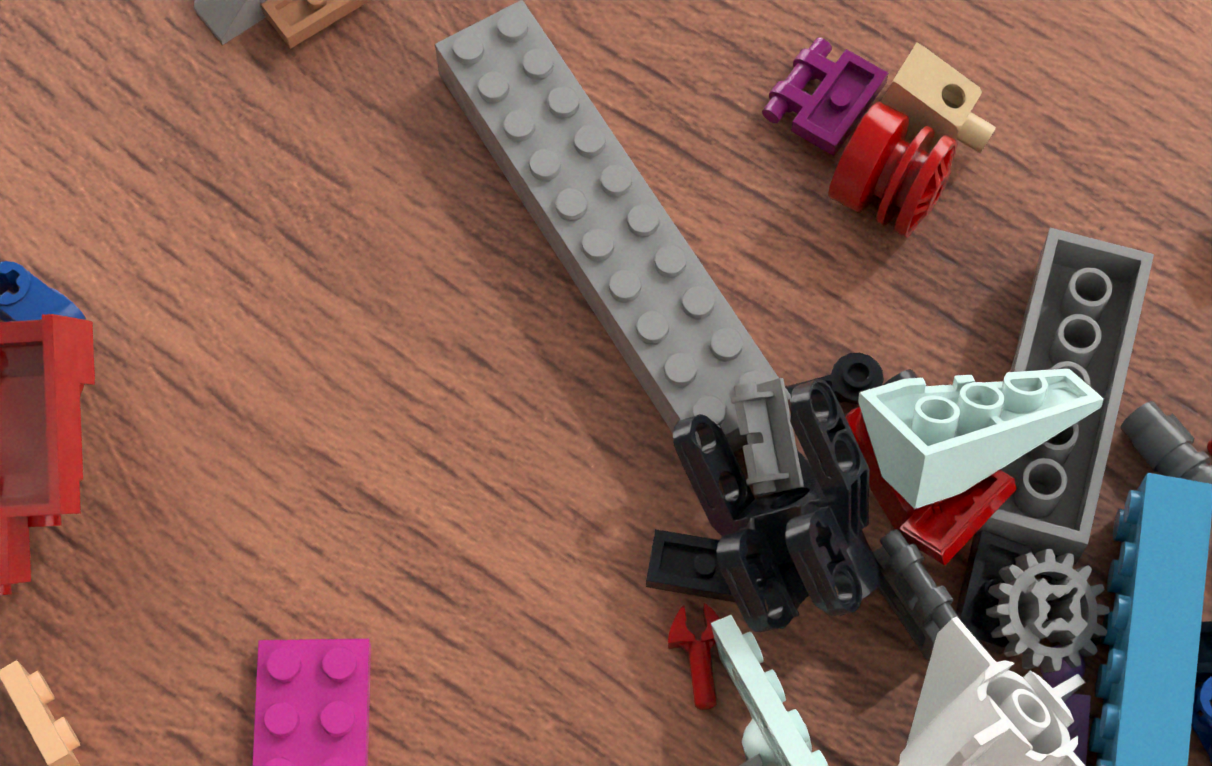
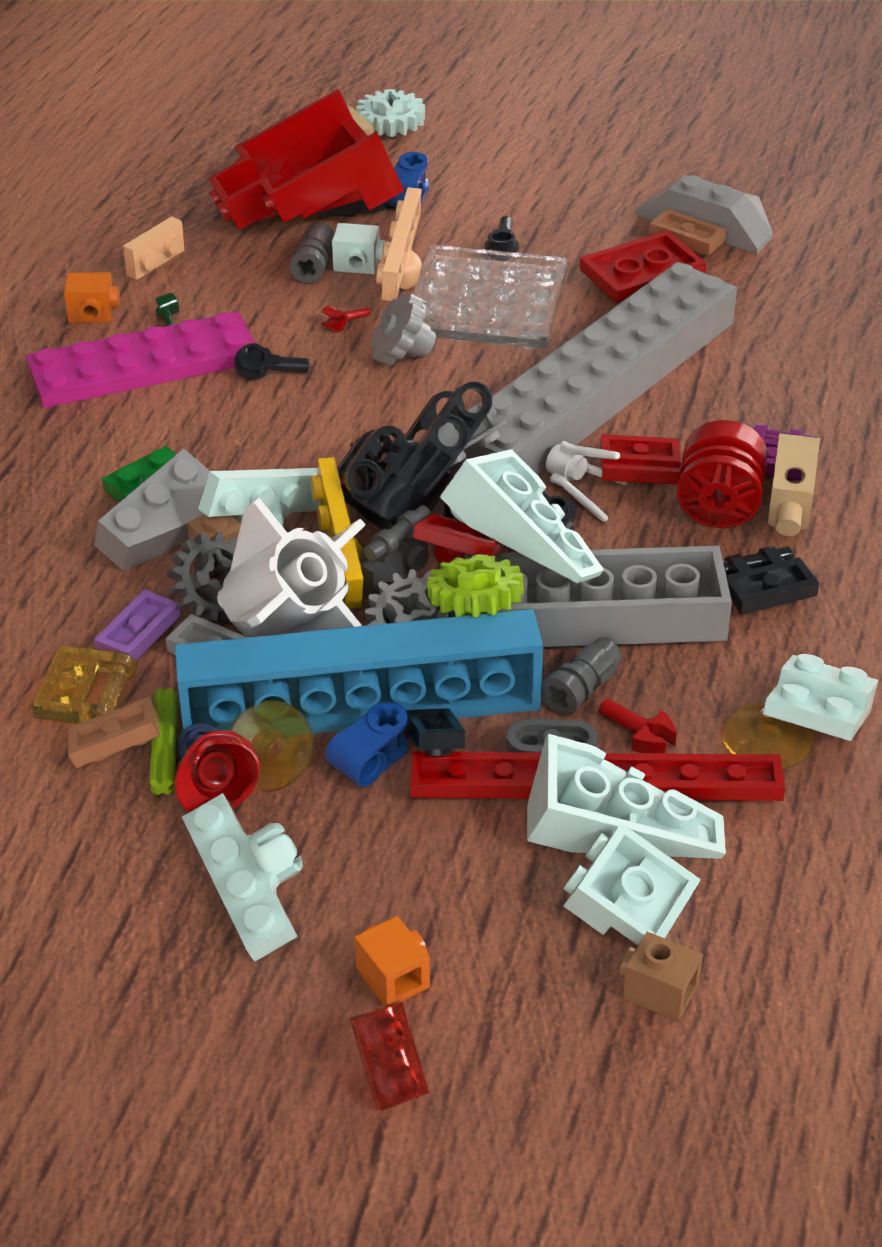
camera: 70 degrees right, 25 degrees down
(146, 489) = (312, 254): none -> dark grey axle
(174, 430) = (357, 248): none -> light aqua brick
(194, 744) = (167, 307): none -> dark green hand
(236, 236) = (503, 238): none -> black plate
(240, 377) = (399, 264): none -> light nougat plate
(324, 513) = (339, 319): none -> red hand
(359, 301) = (490, 295): none -> clear plate
(373, 86) = (632, 265): none -> red plate
(395, 651) = (256, 361): none -> black plate
(427, 440) = (402, 331): none -> light grey plant
(775, 327) = (568, 464): none -> white plant
(794, 246) = (641, 459): none -> red plate
(862, 657) = (334, 518): none -> yellow plate
(1070, 192) = (768, 579): none -> black plate
(1085, 499) = (475, 586): none -> lime gear

